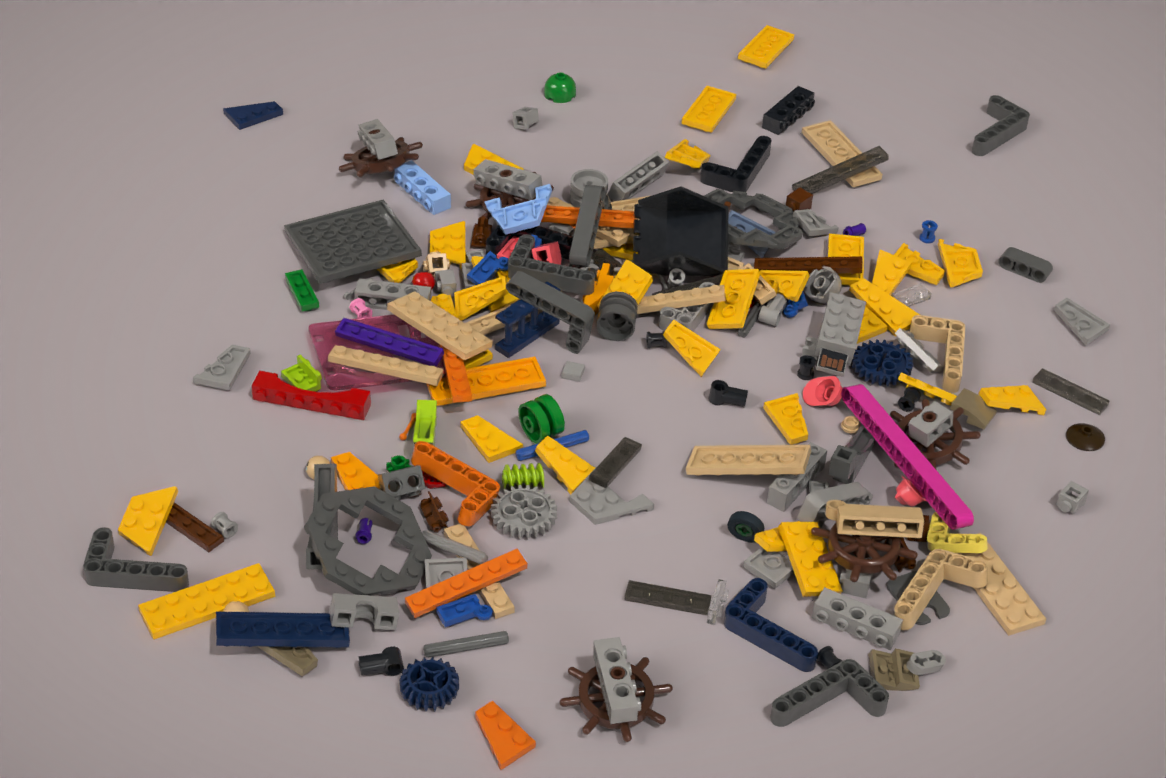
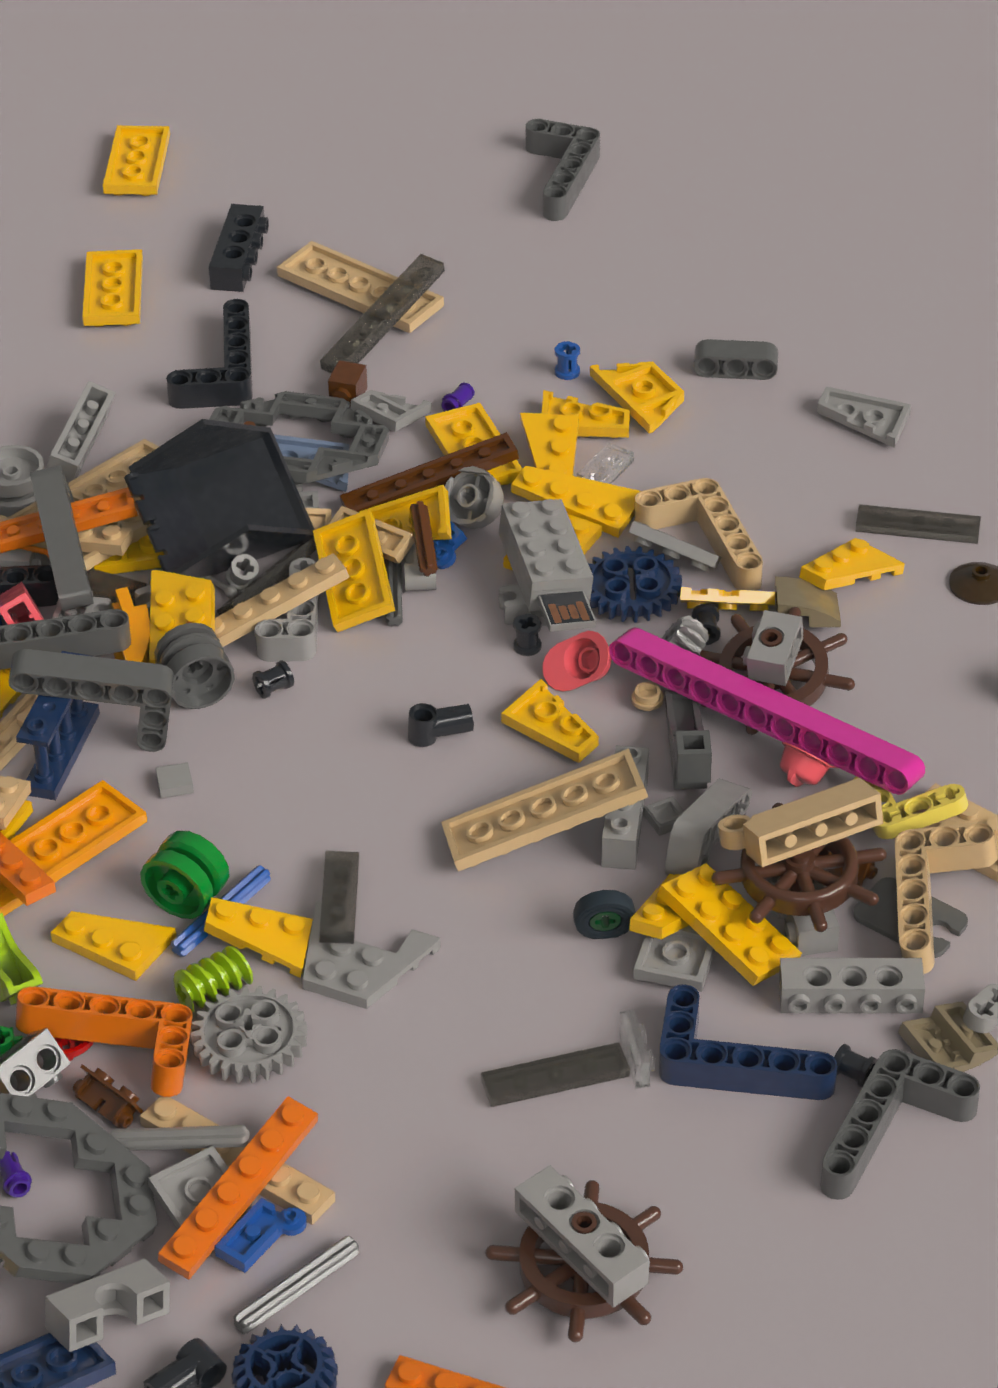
camera: 25 degrees left, 0 degrees up
(687, 155) = (133, 371): yellow wing -> none
(691, 347) = (336, 669): yellow wing -> none
(779, 296) = (423, 538): none -> reddish brown axle
(890, 400) = (687, 634): none -> light grey gear

